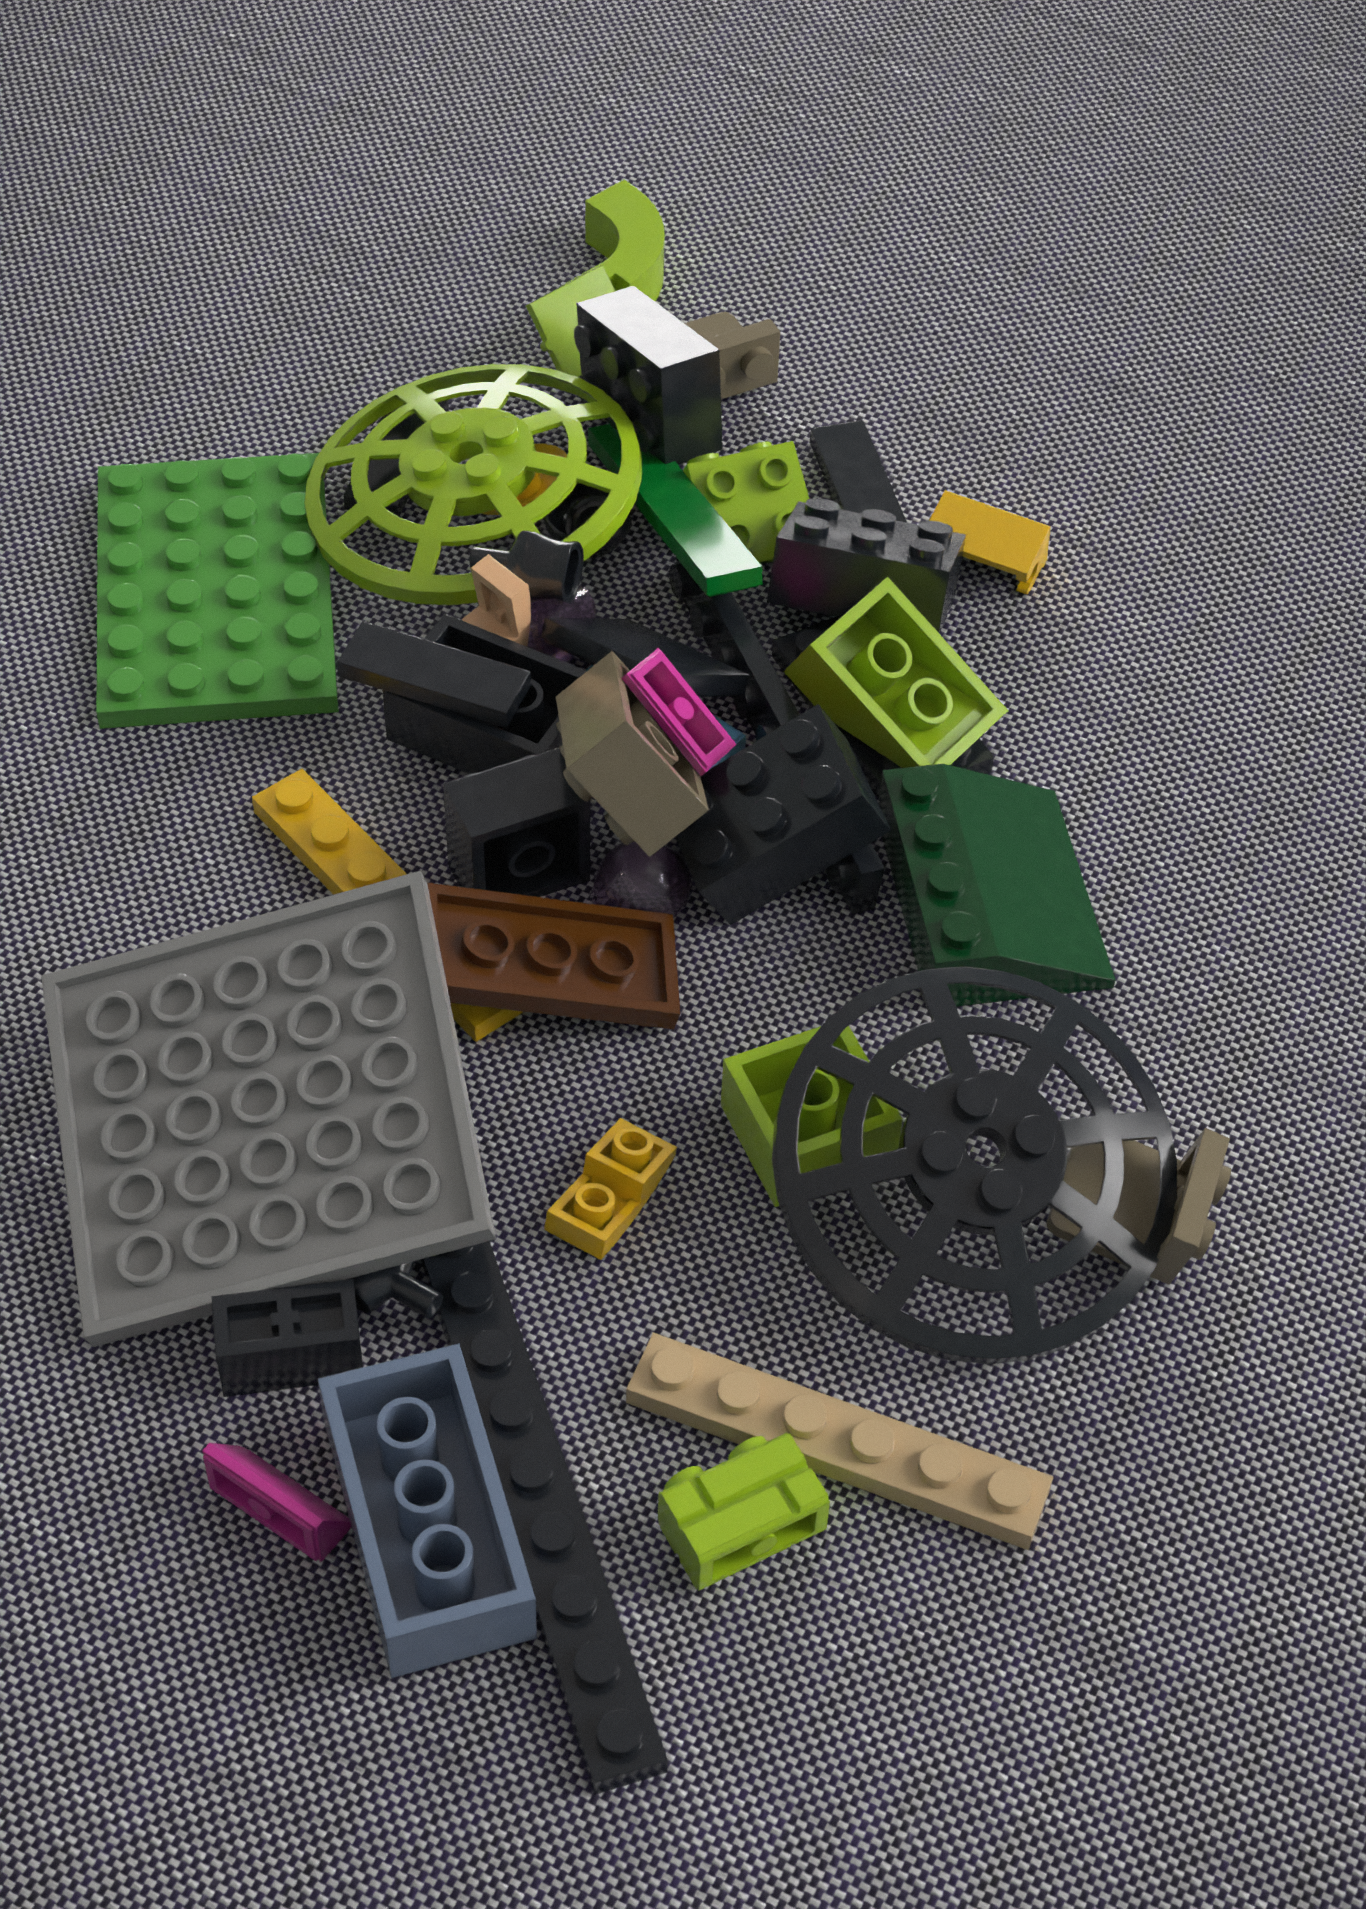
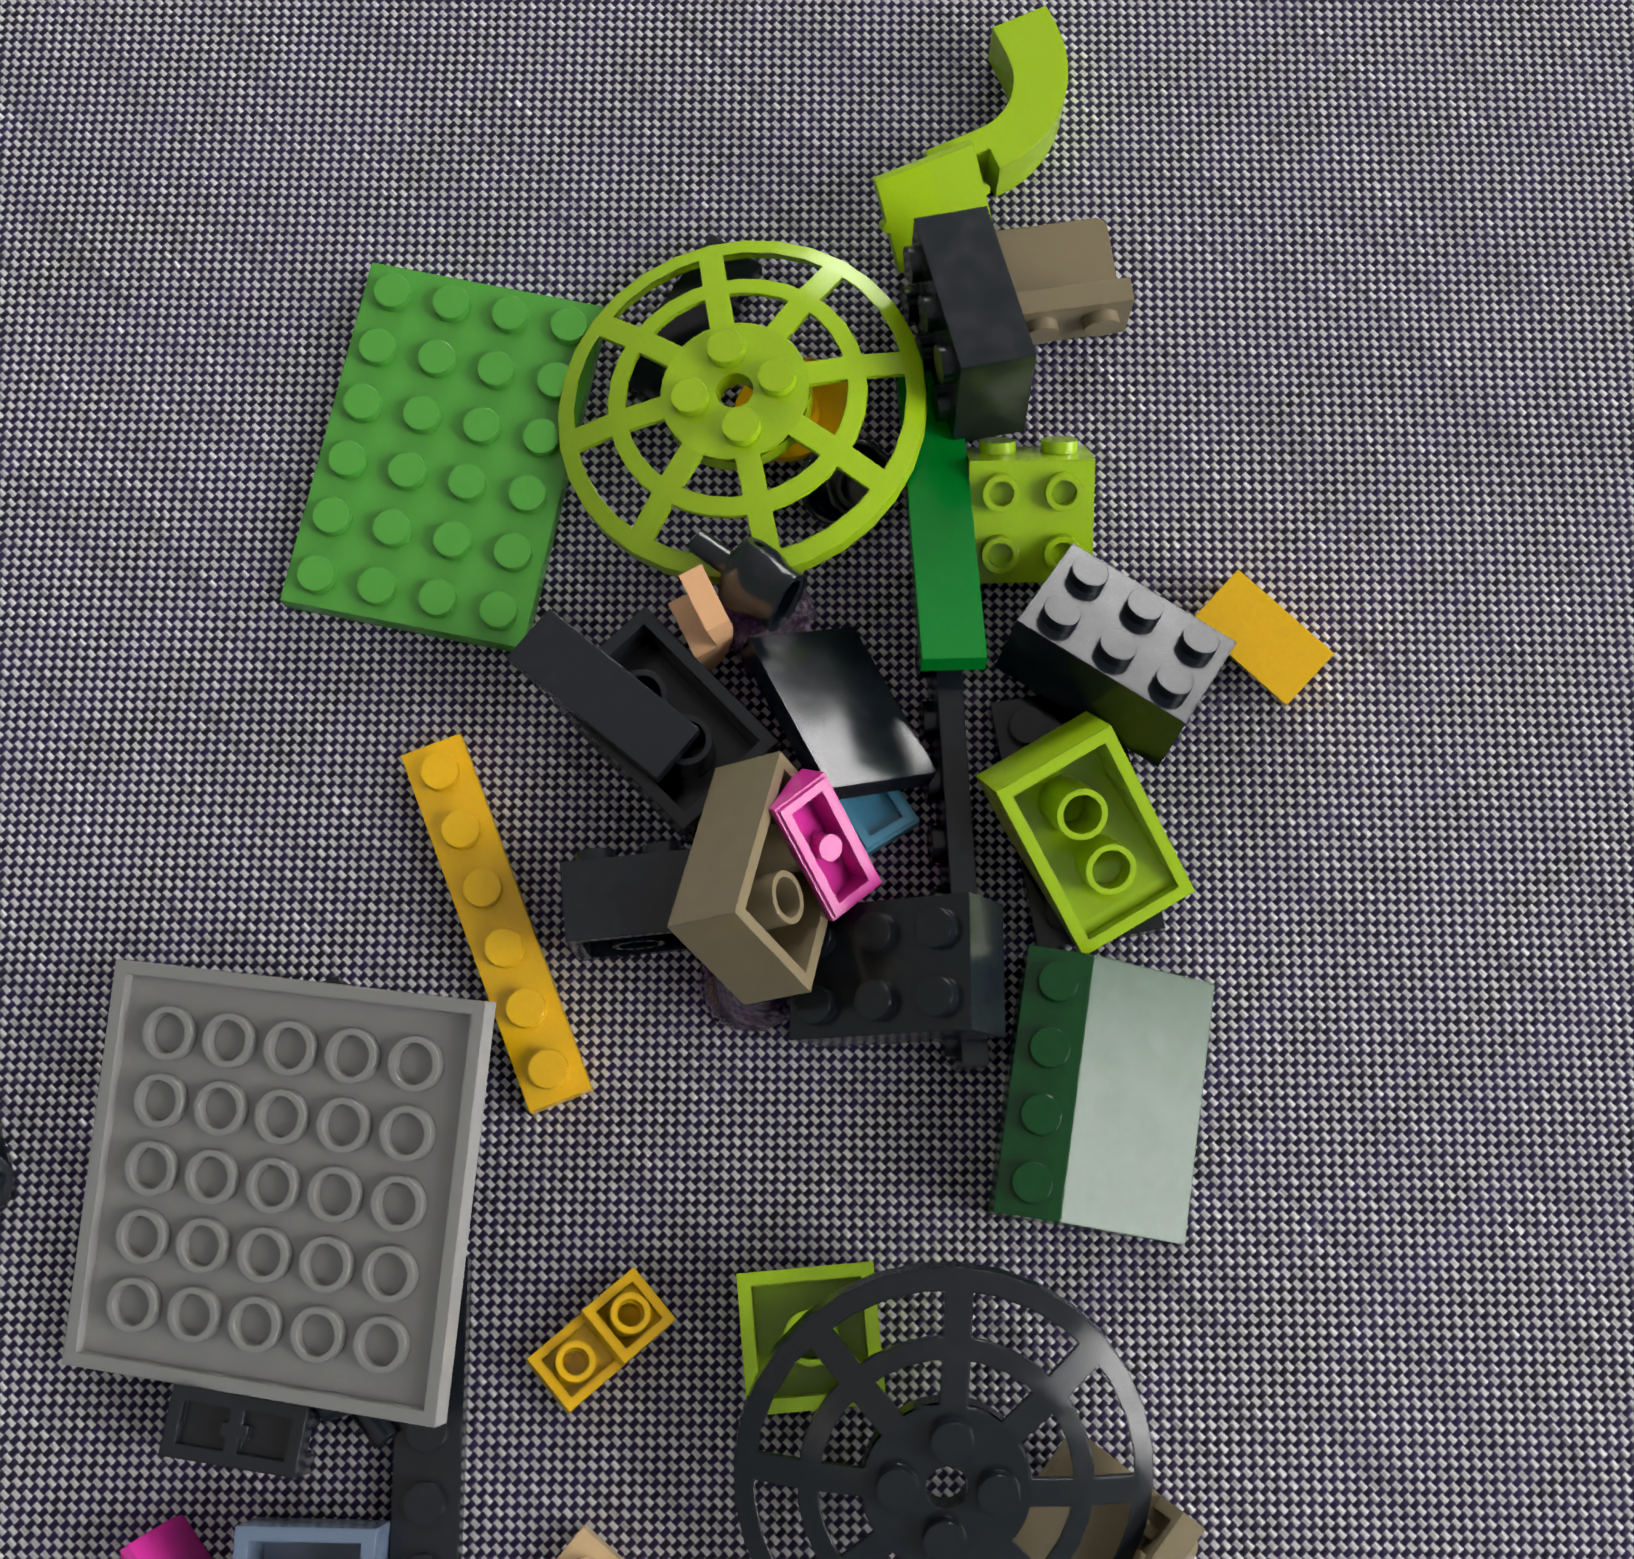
camera: 20 degrees right, 25 degrees up
(557, 956) = (621, 1065): reddish brown plate -> none
(853, 468) = (1161, 505): black tile -> none

